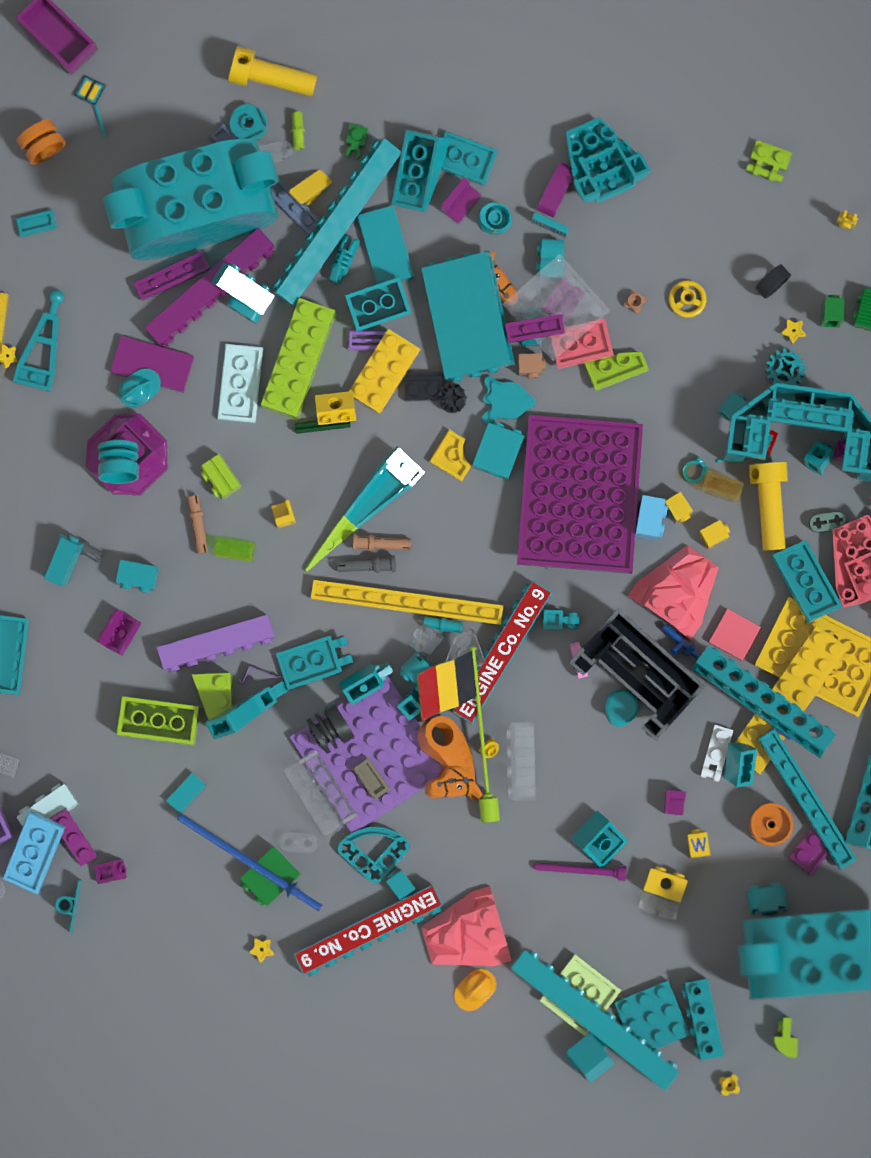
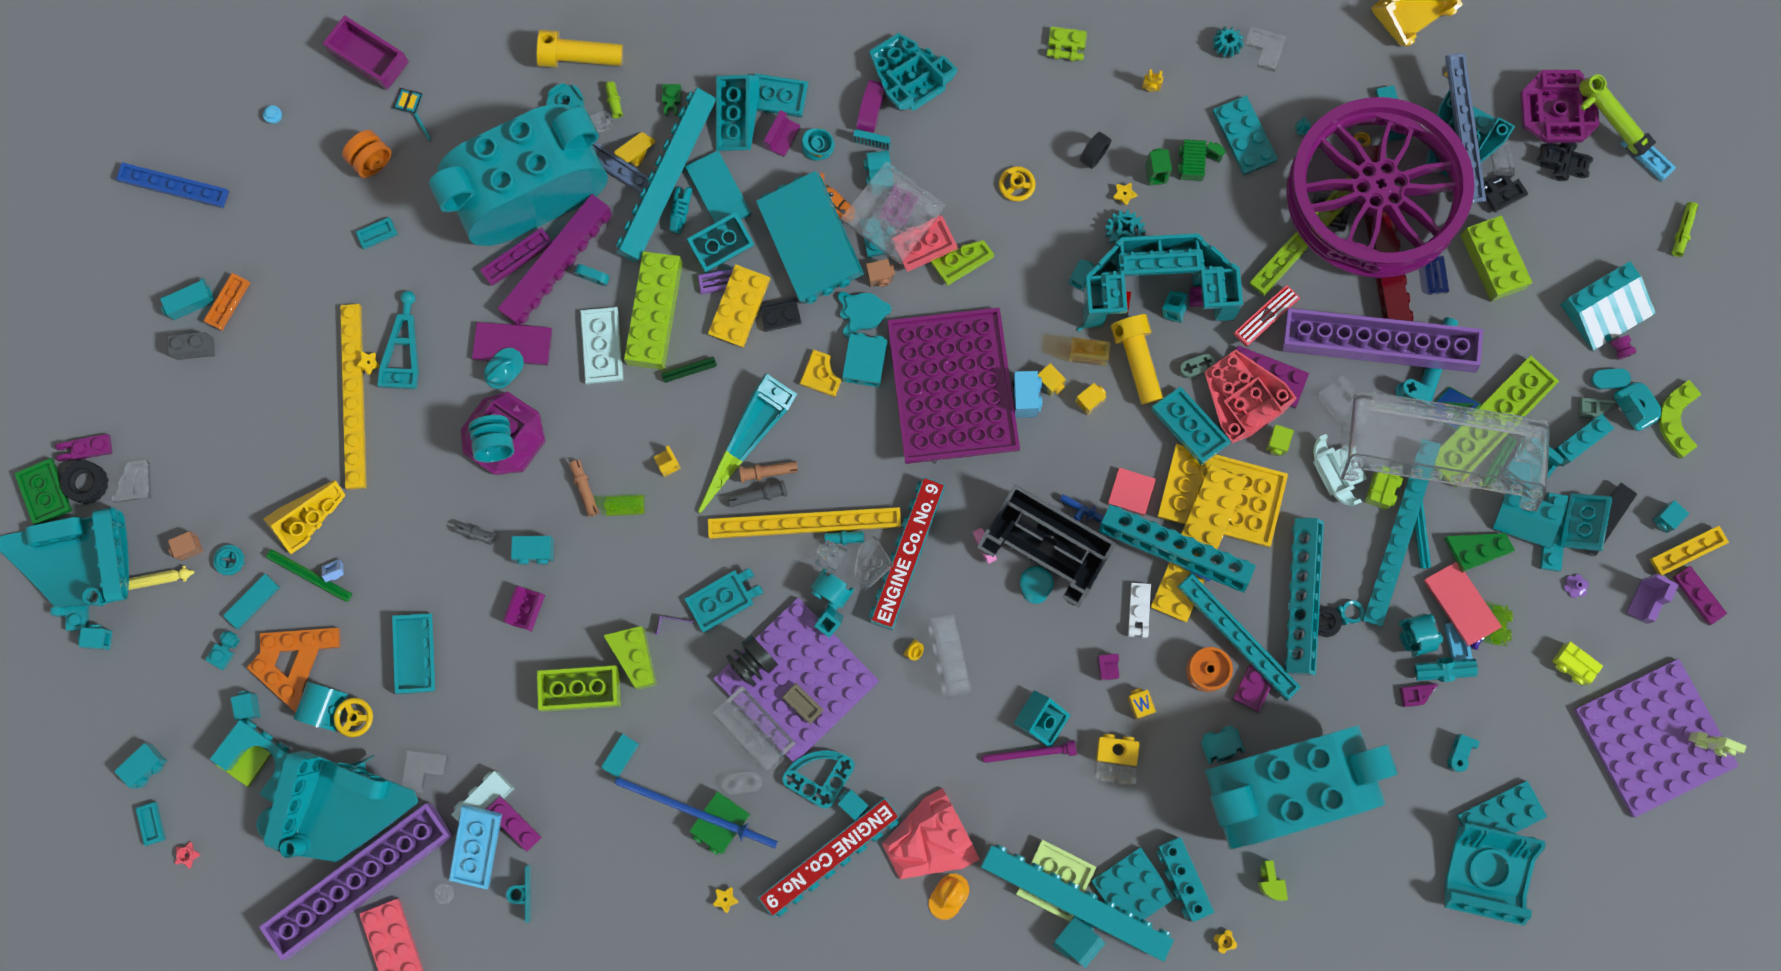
camera: 15 degrees left, 5 degrees down
(64, 560) = (456, 548): teal brick -> none
(110, 871) = (557, 850): magenta bracket -> none
(215, 643) = (622, 600): medium lavender brick -> none
(220, 476) = (598, 437): lime brick -> none
(243, 287) = (586, 252): brick -> none
(245, 711) = (662, 661): teal piece -> none
(335, 408) = (698, 349): yellow brick -> none
(365, 682) = (778, 608): teal hinge -> none
(448, 405) = (806, 325): black gear -> none
(449, 687) = (863, 596): flag -> none
(455, 757) = (882, 665): orange animal -> none
(534, 328) = (876, 234): magenta plate -> none
(554, 620) = (953, 511): teal plate -> none
(640, 301) = (967, 191): nougat plate -> none
(678, 590) = (1067, 459): coral wedge -> none
(698, 461) = (1068, 339): teal piece -> none
(740, 764) = (1165, 615): teal brick -> none

